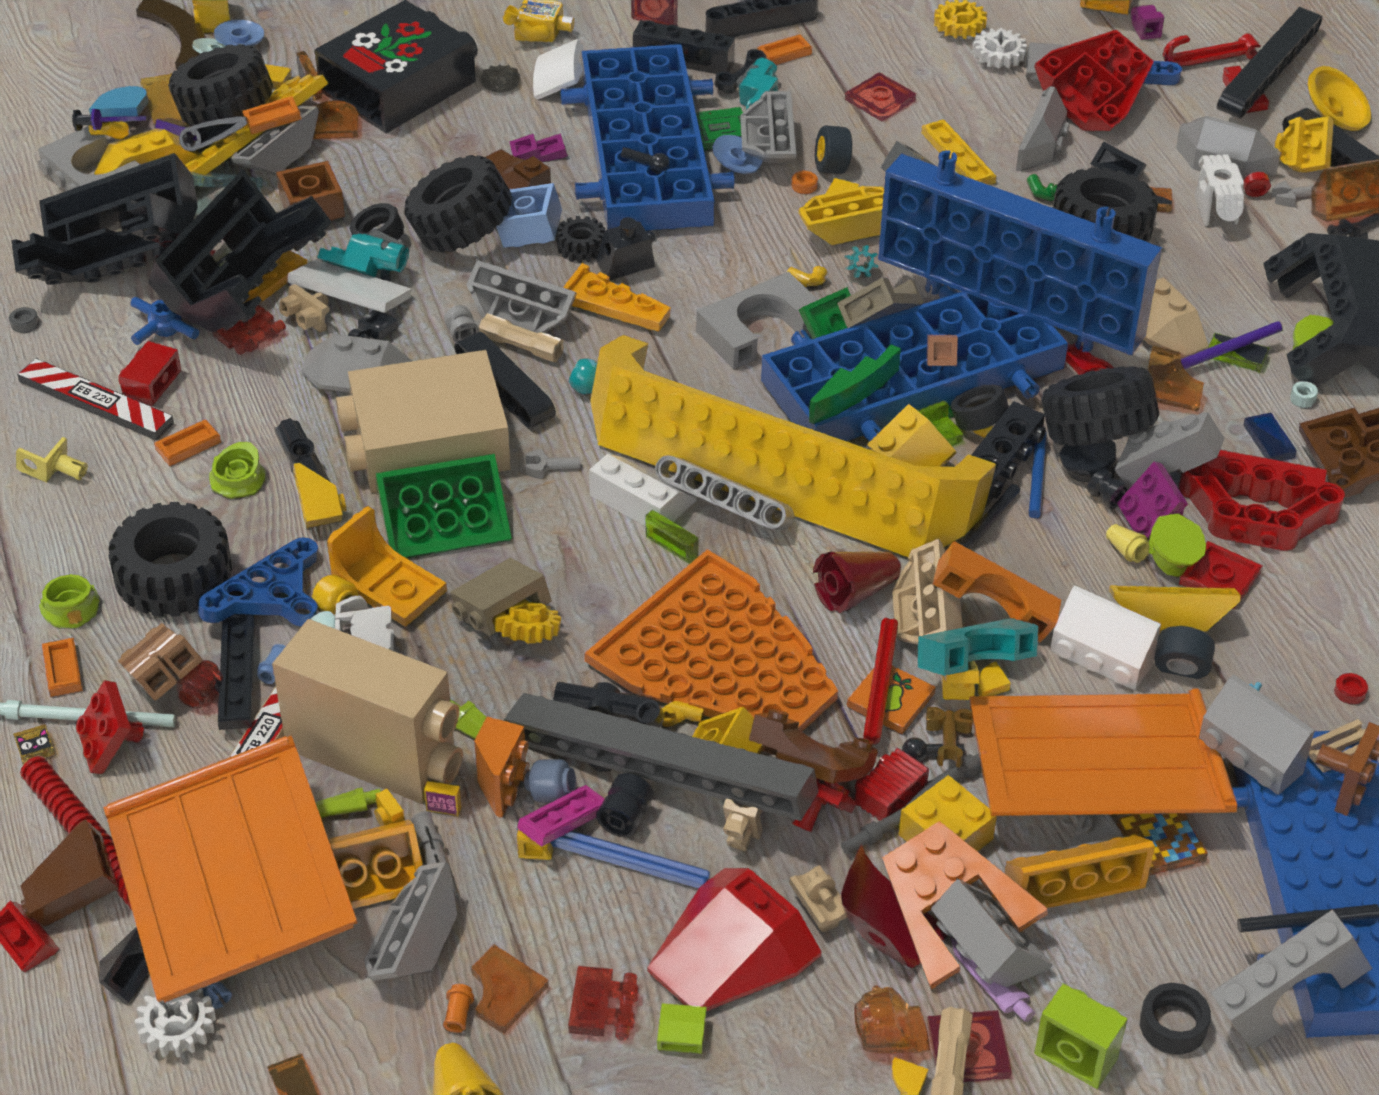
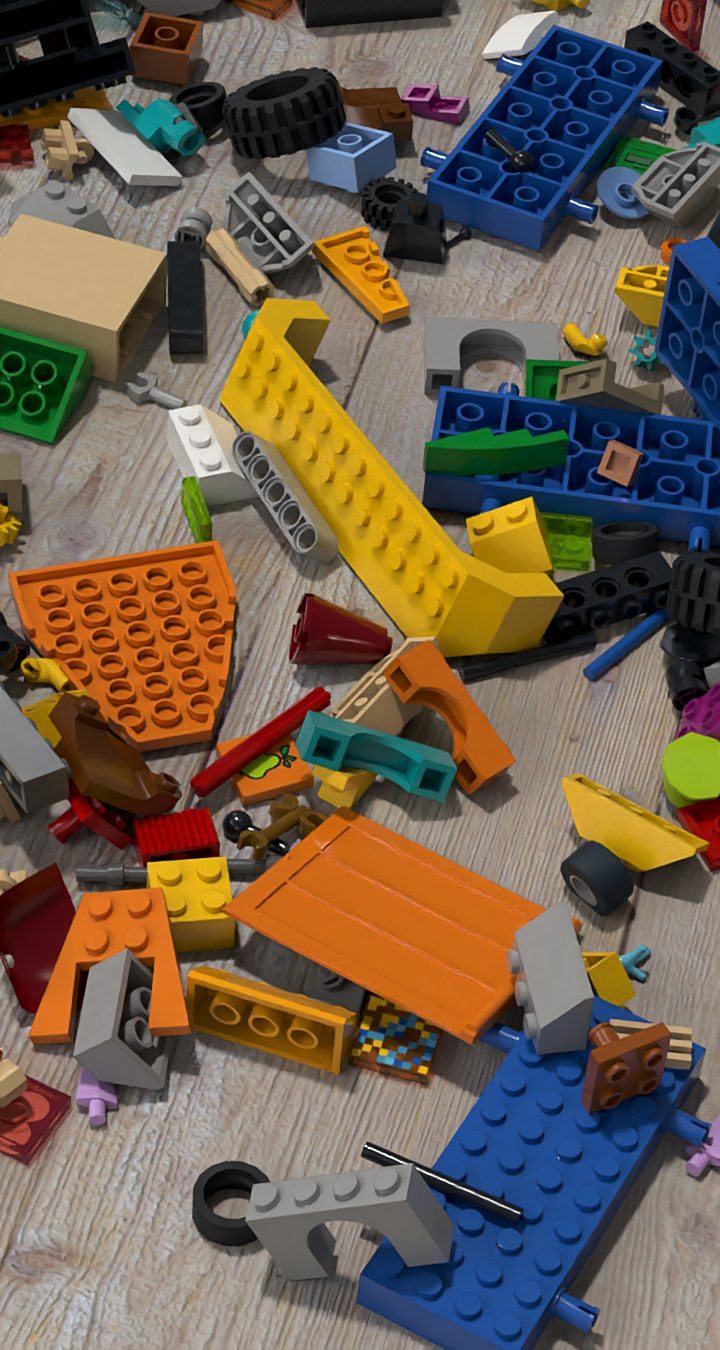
camera: 30 degrees right, 0 degrees up
(375, 325) = (114, 194): black plate -> none
(507, 78) = (464, 23): clear smoke gear -> none
(992, 680) = (379, 803): yellow tile -> none
(1080, 1035) = (111, 1158): lime brick -> none
(1105, 638) = (522, 821): white slope -> none
(1129, 543) = (652, 747): light yellow cone -> none

